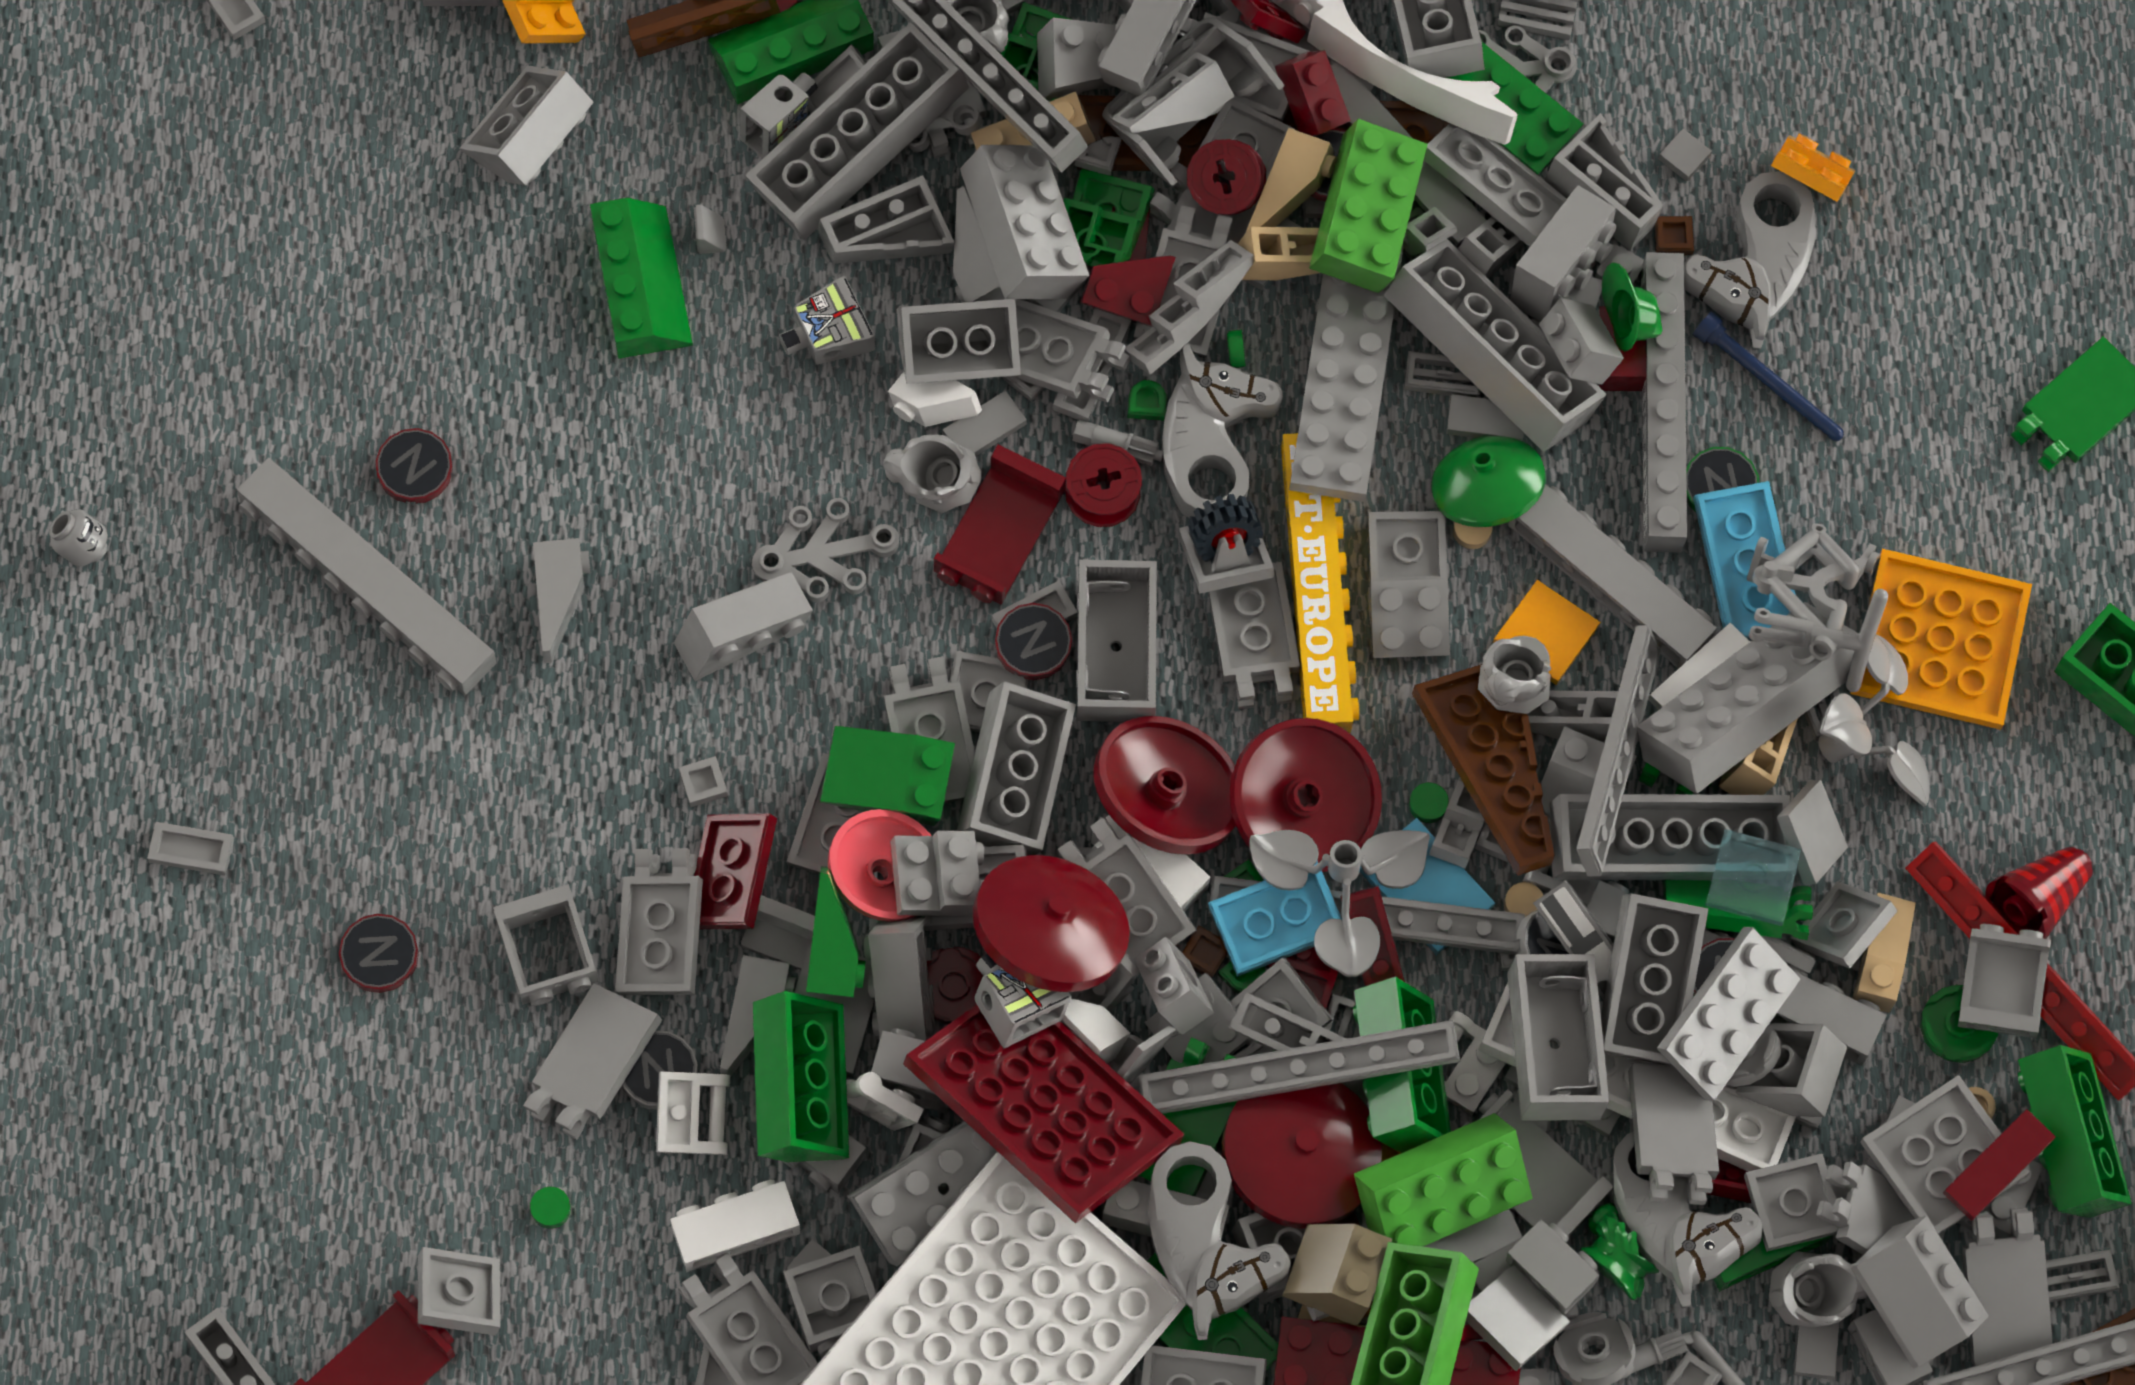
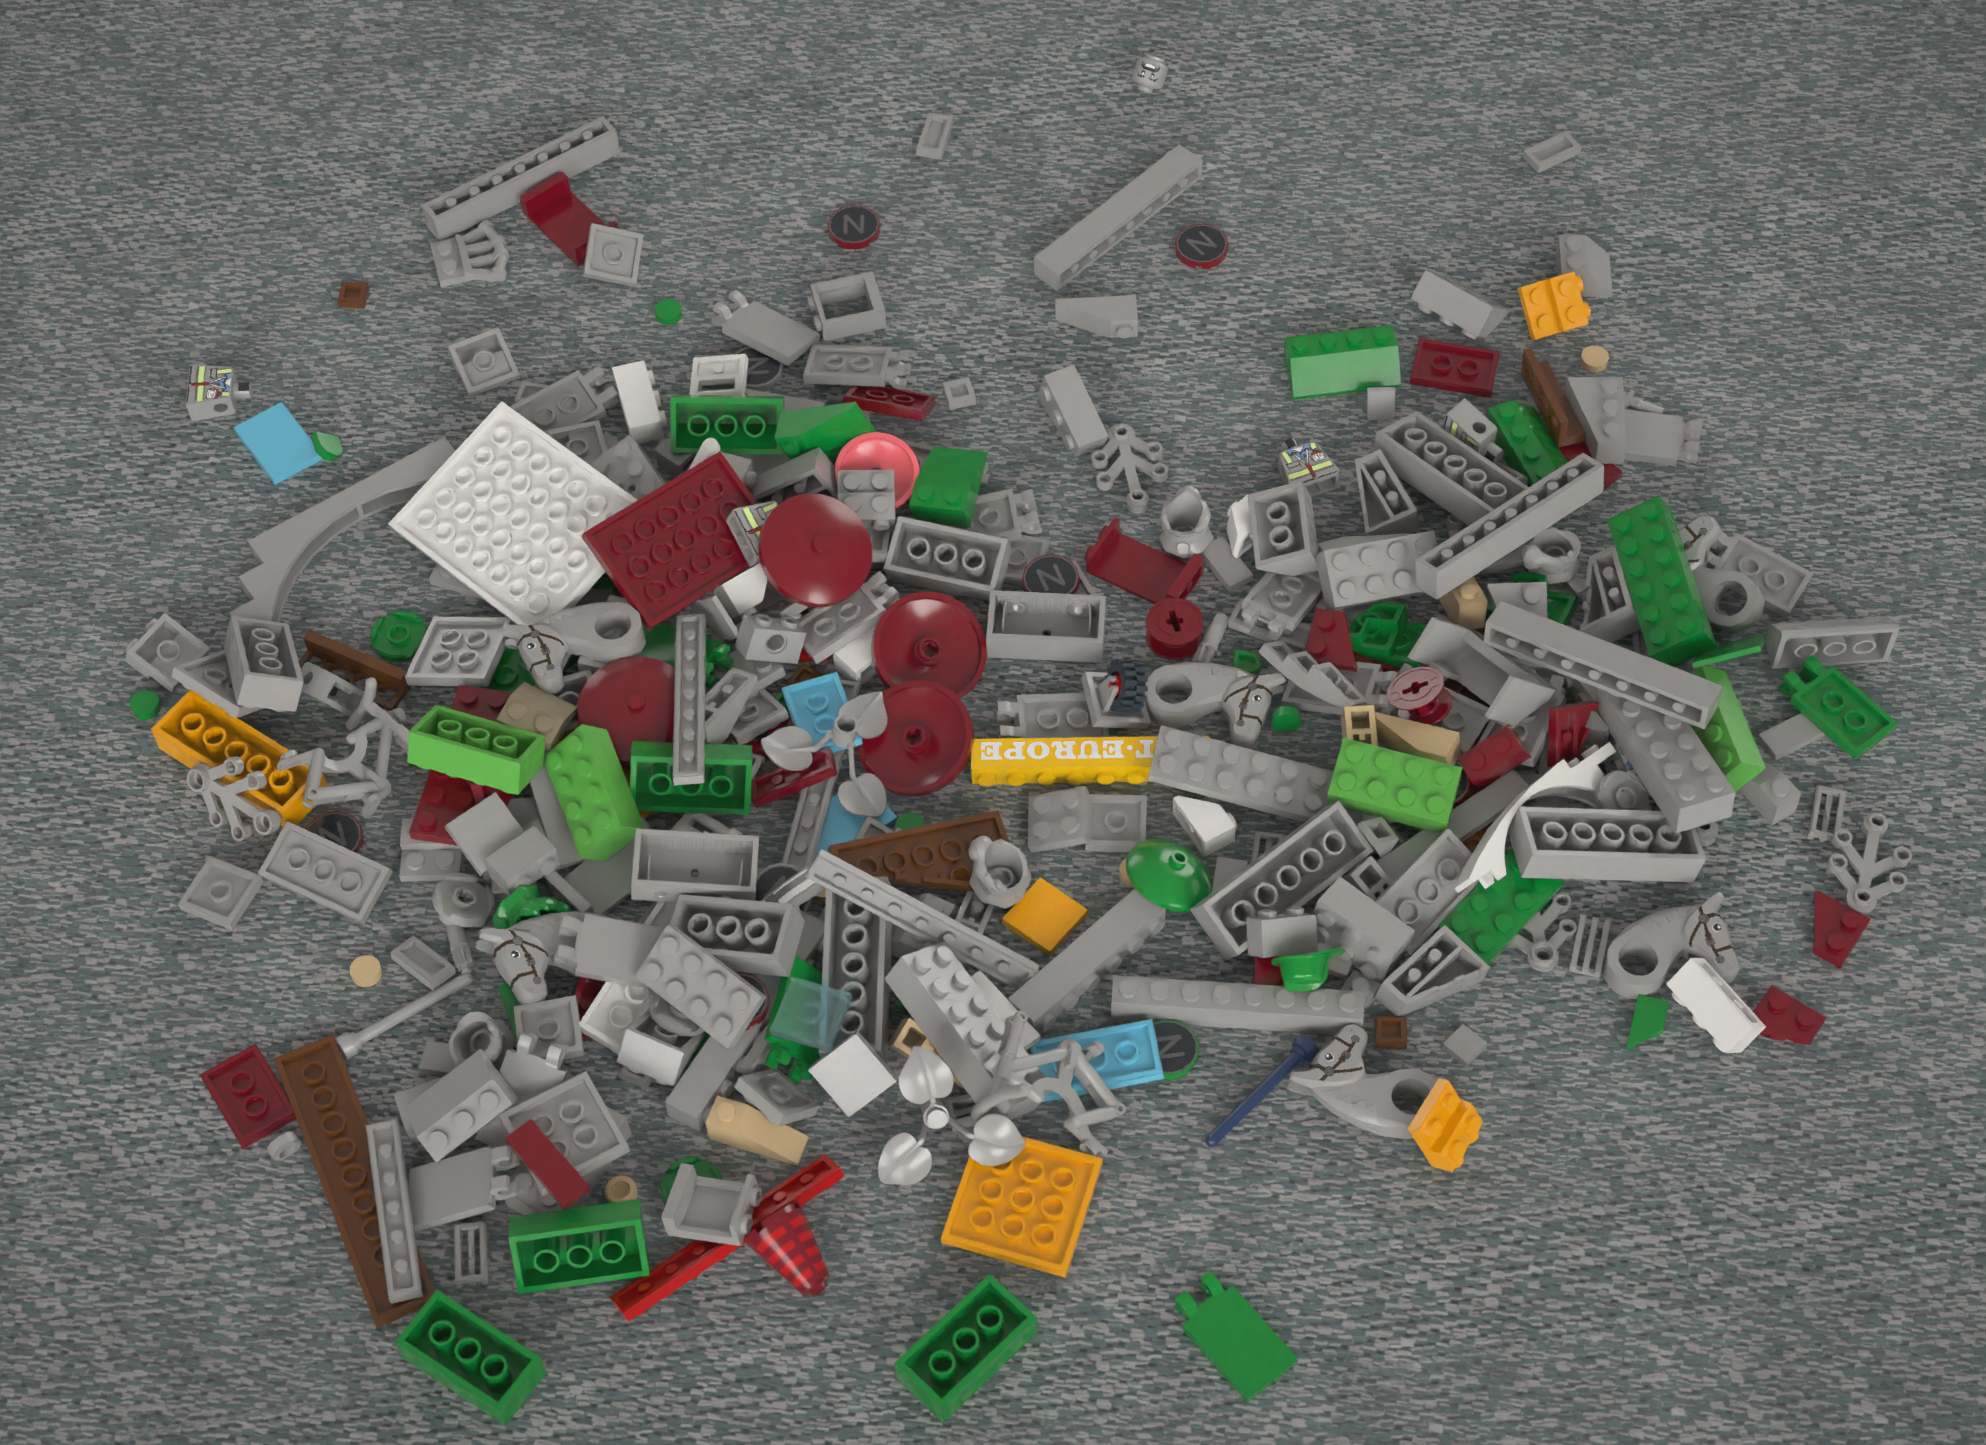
camera: 100 degrees right, 15 degrees down
(635, 138) = (1454, 367): none -> dark red tile
(1182, 96) = (1480, 661): light grey slope -> none
(1406, 441) = (1205, 823): none -> white slope

